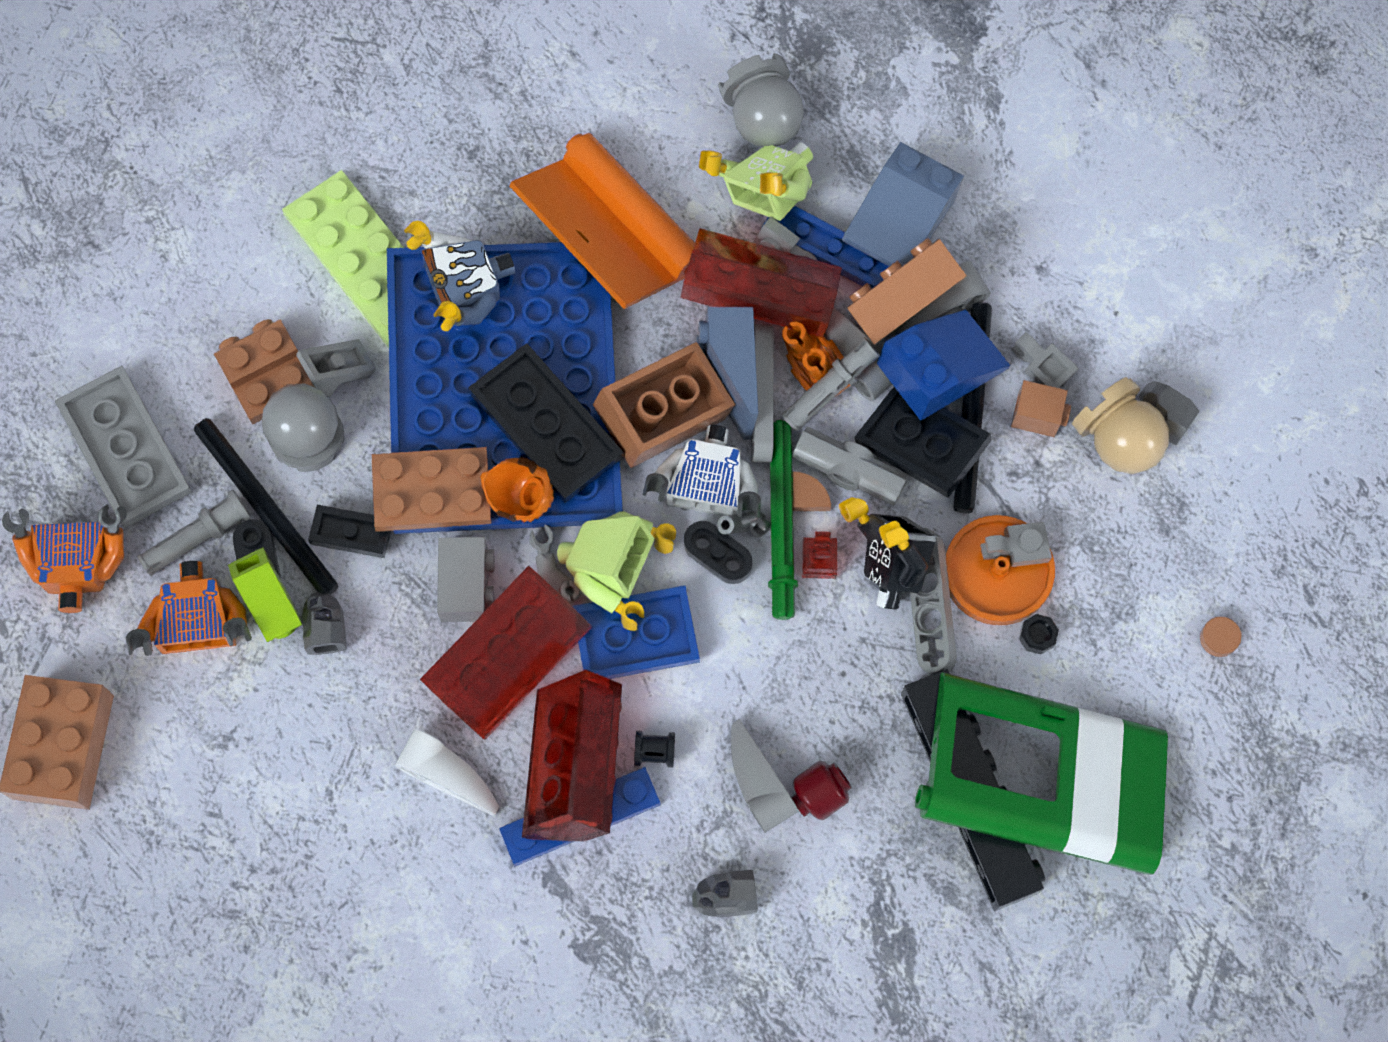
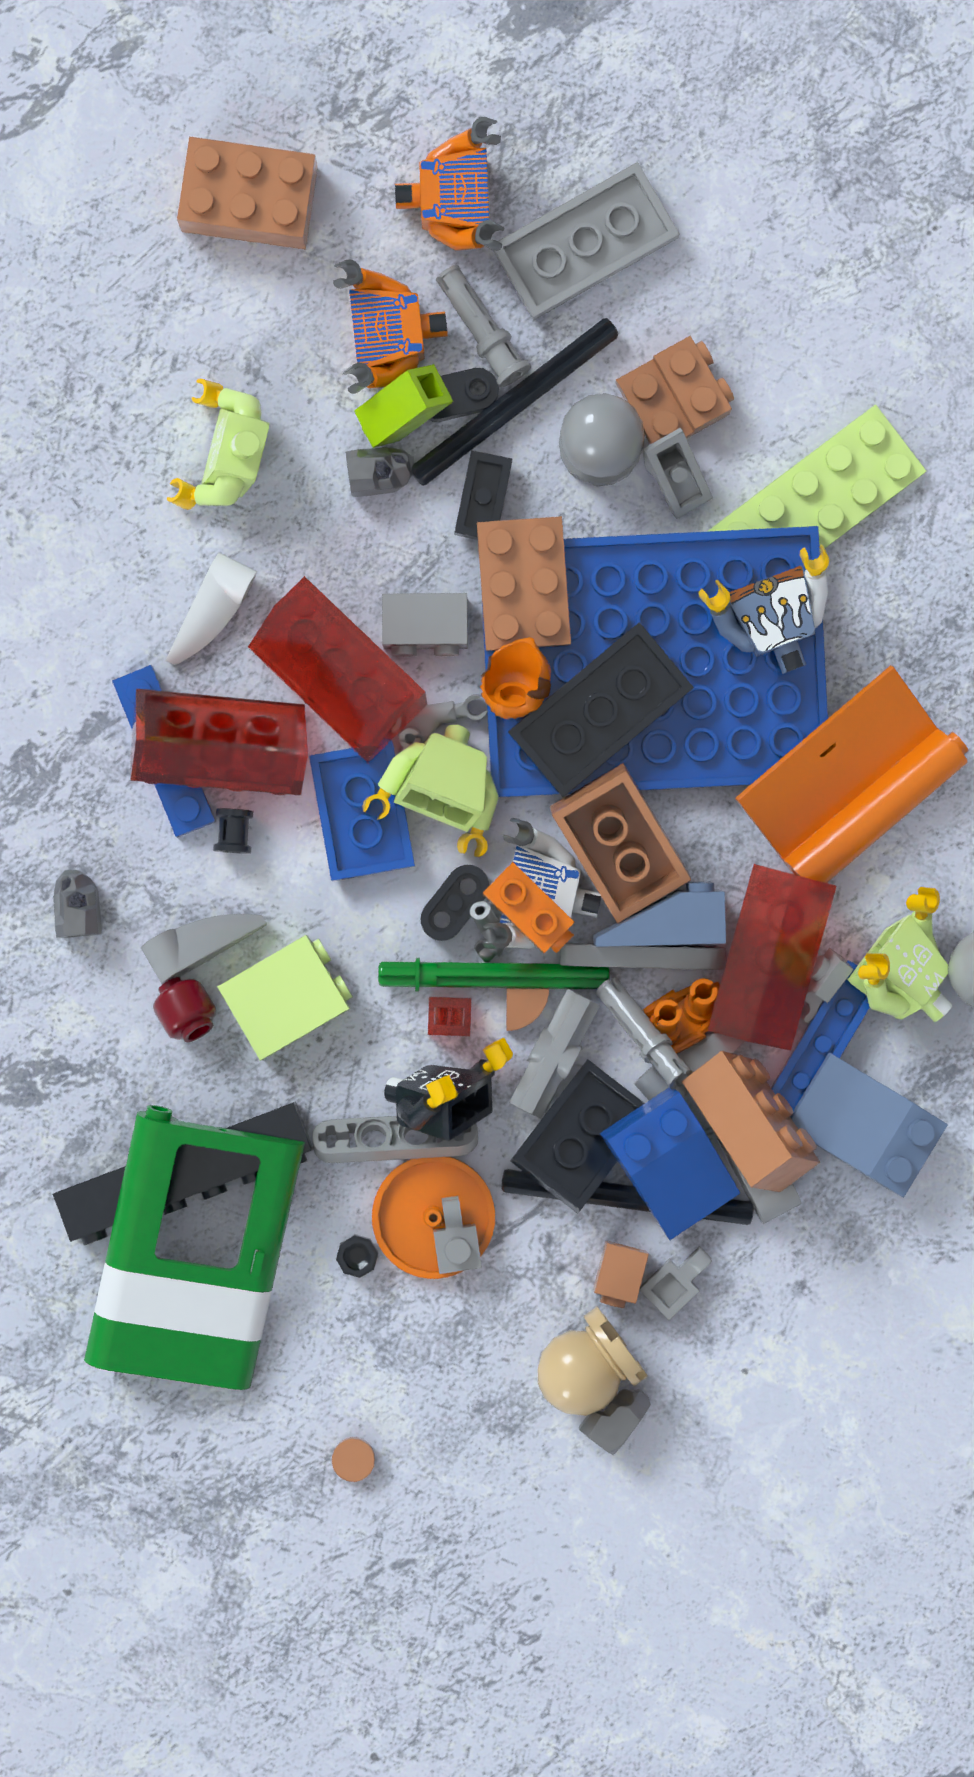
camera: 90 degrees right, 15 degrees up
(300, 749) = (233, 451): none -> yellowish green torso
(724, 475) = (530, 909): none -> orange brick
(807, 698) = (285, 996): none -> yellowish green brick

